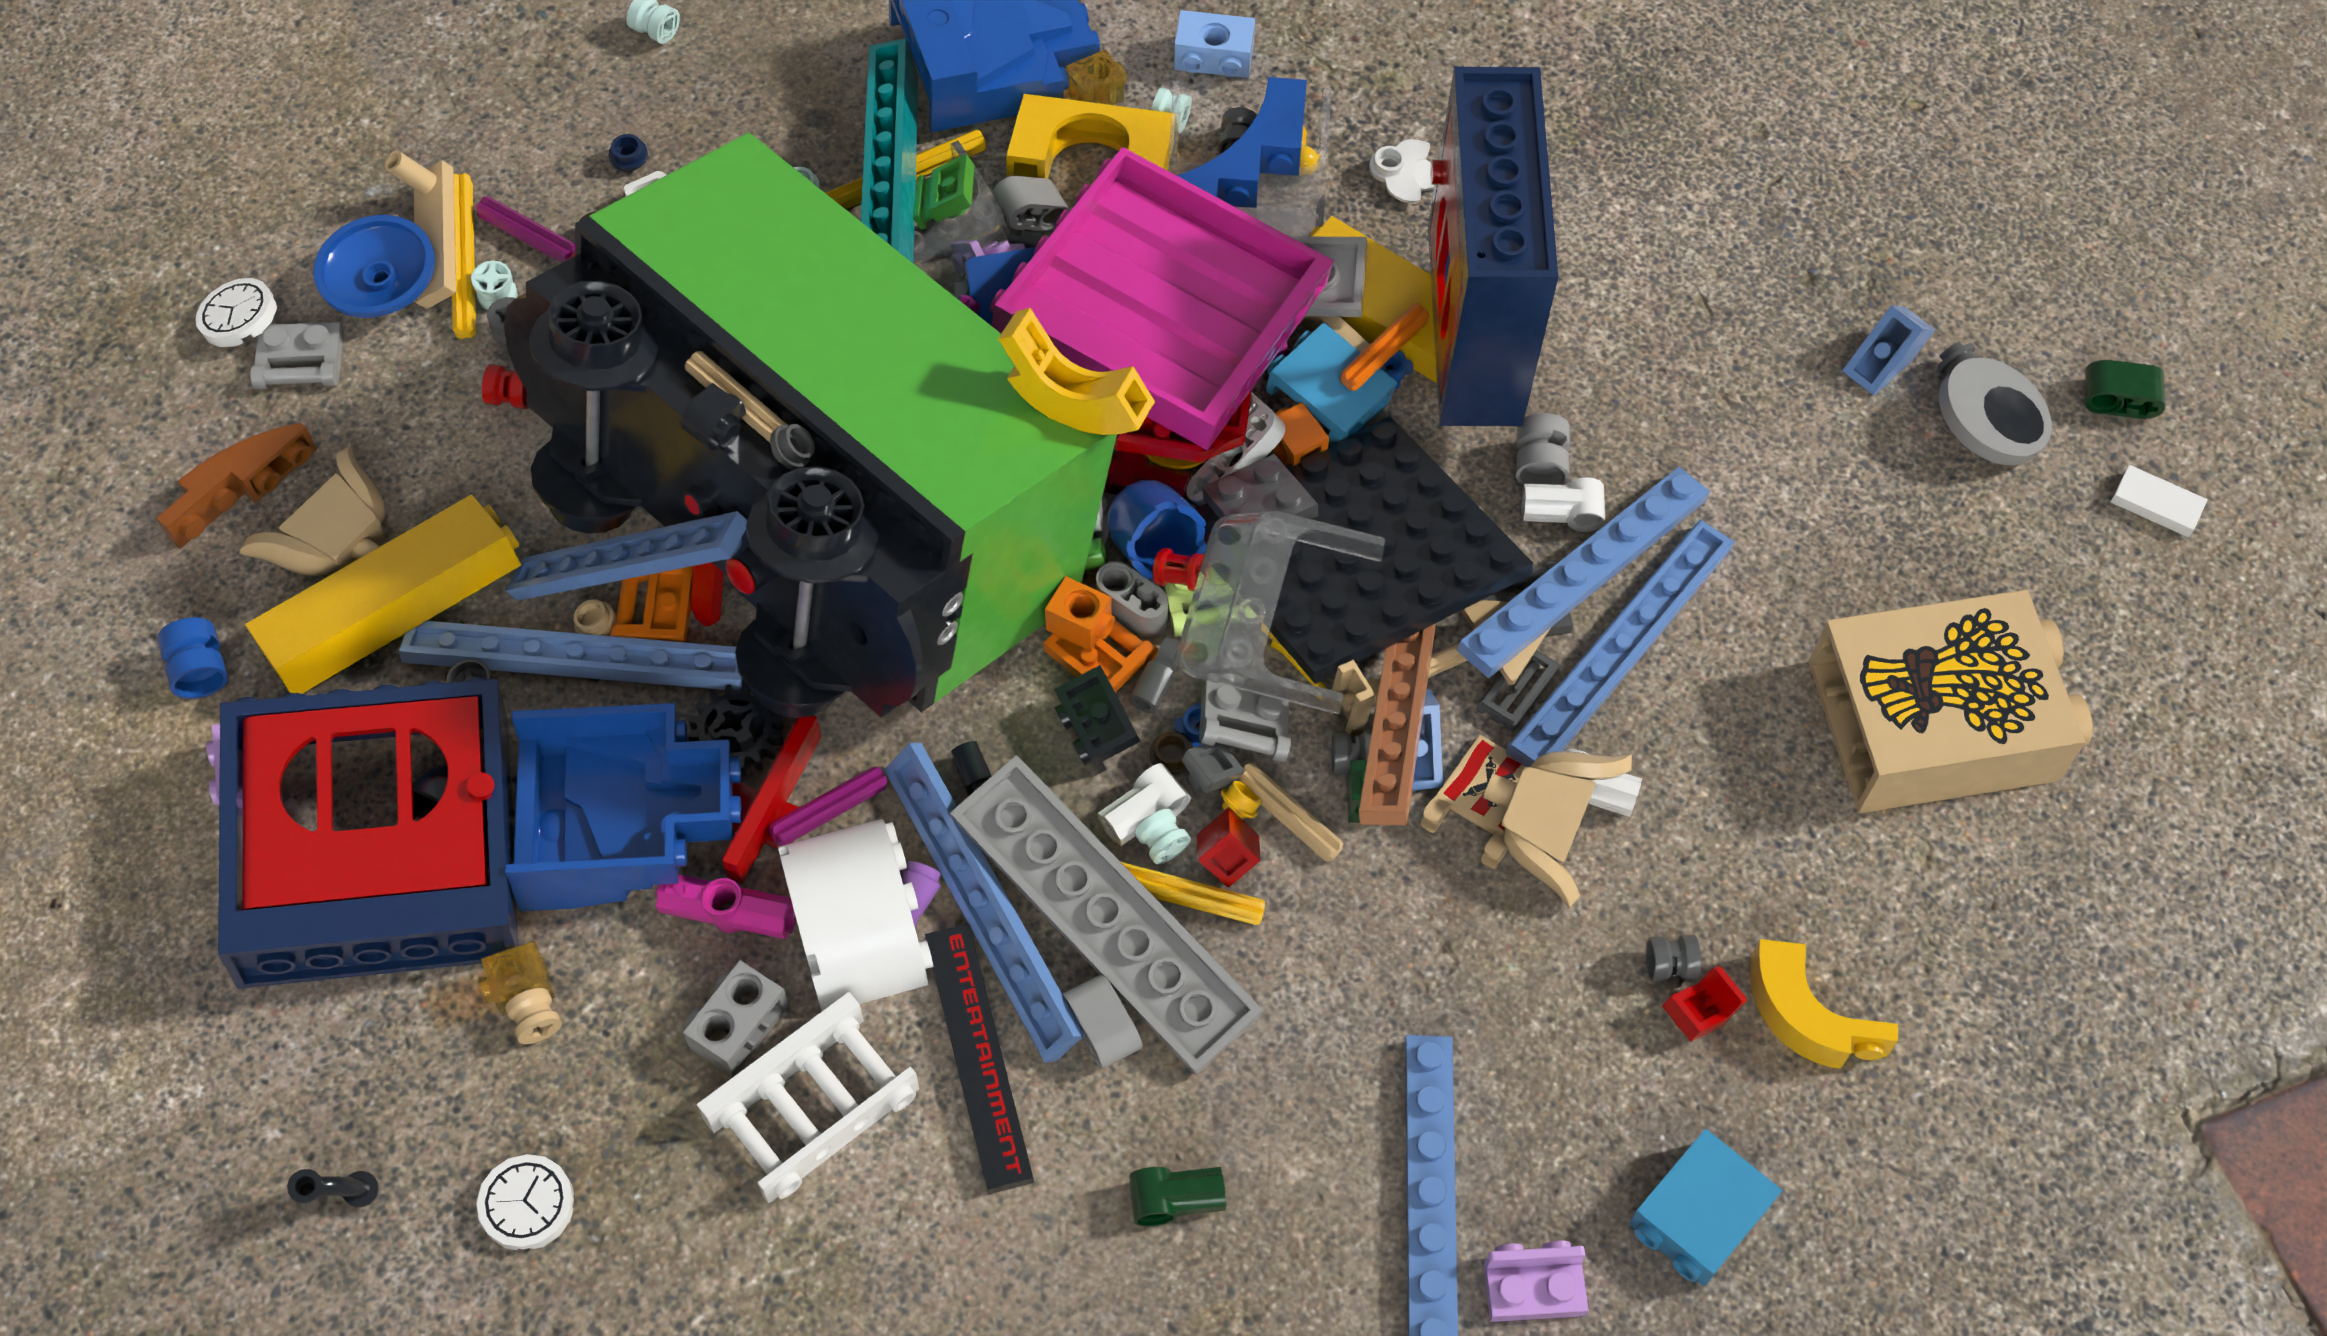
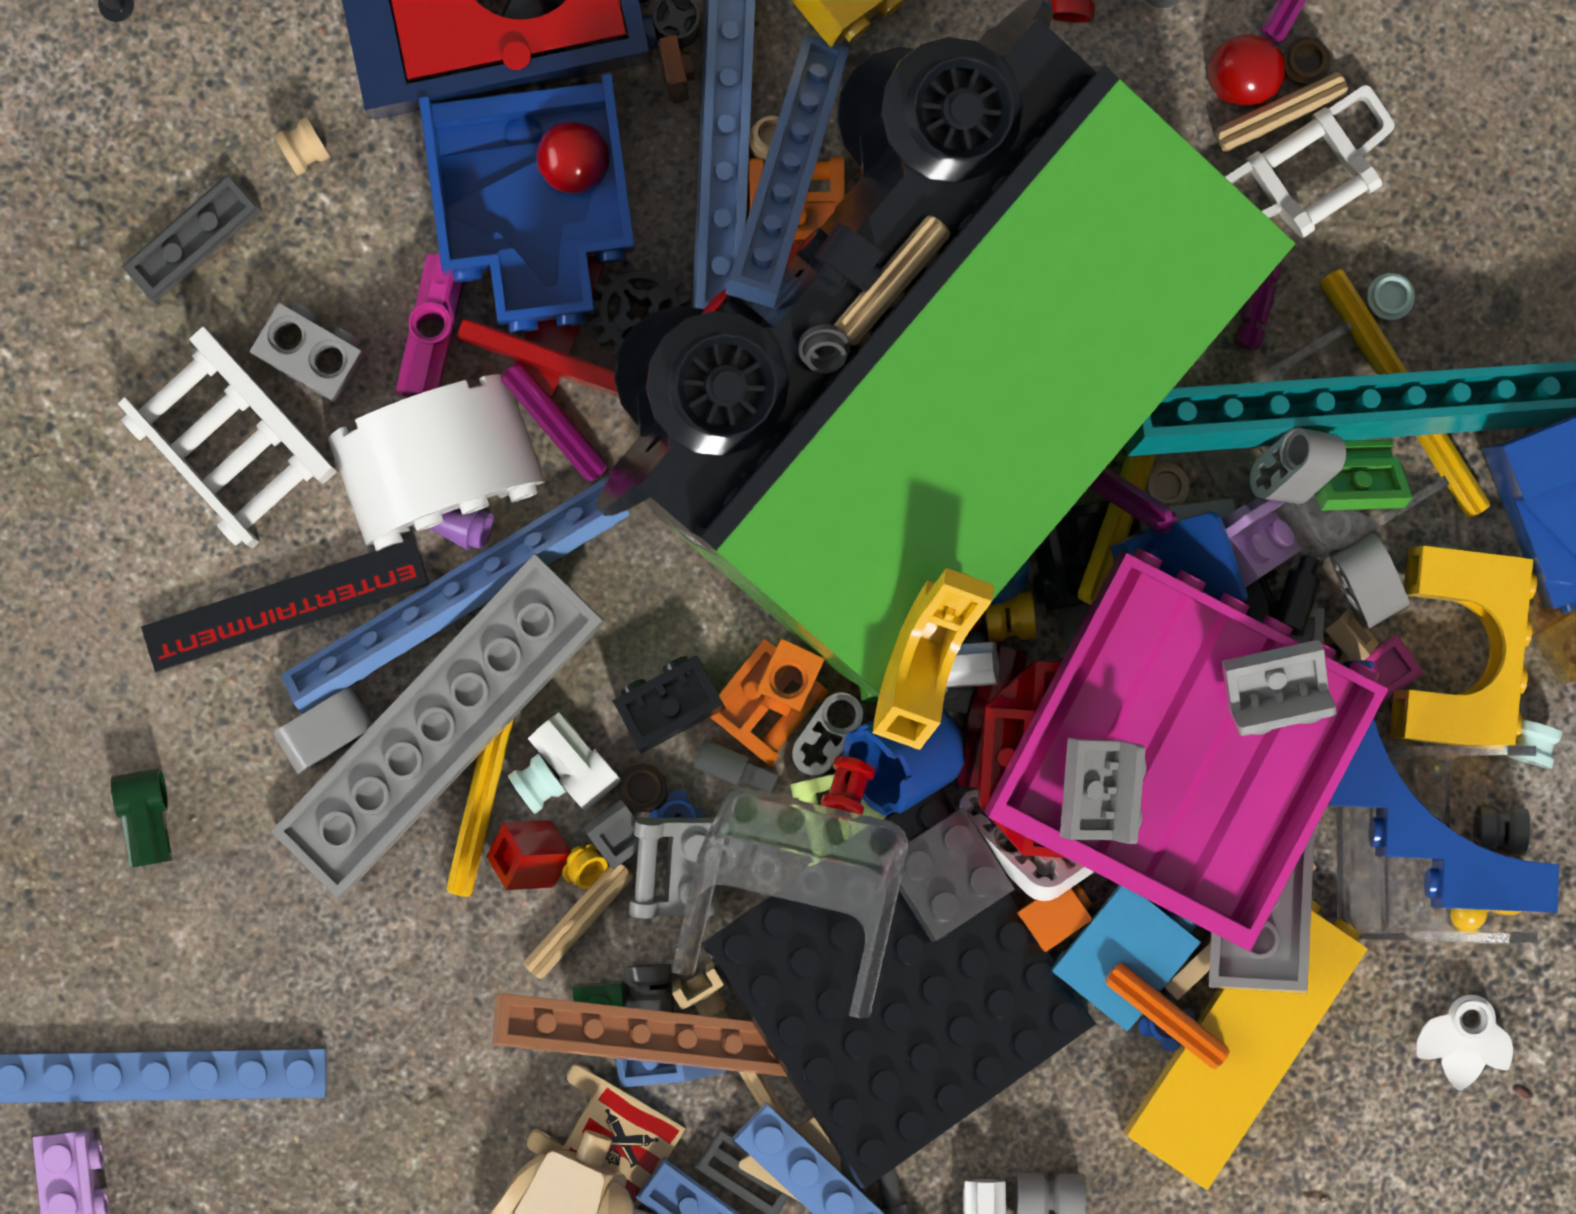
camera: 85 degrees right, 25 degrees up
(518, 681) = (676, 68): none -> reddish brown plate
(518, 960) = (345, 142): clear yellow brick -> none
(525, 1202) = (111, 168): white tile -> none
(584, 767) = (572, 157): none -> red hair
(608, 1129) = (191, 238): none -> dark grey tile
(628, 152) = (1434, 70): dark blue plate -> none
(923, 215) = (1297, 465): none -> light grey beam
(970, 765) = (605, 574): black bar -> none
(1117, 208) = (1278, 688): none -> light grey bracket
(1195, 331) = (1103, 790): none -> light grey bracket
(1491, 246) = (1235, 1139): dark blue door -> none

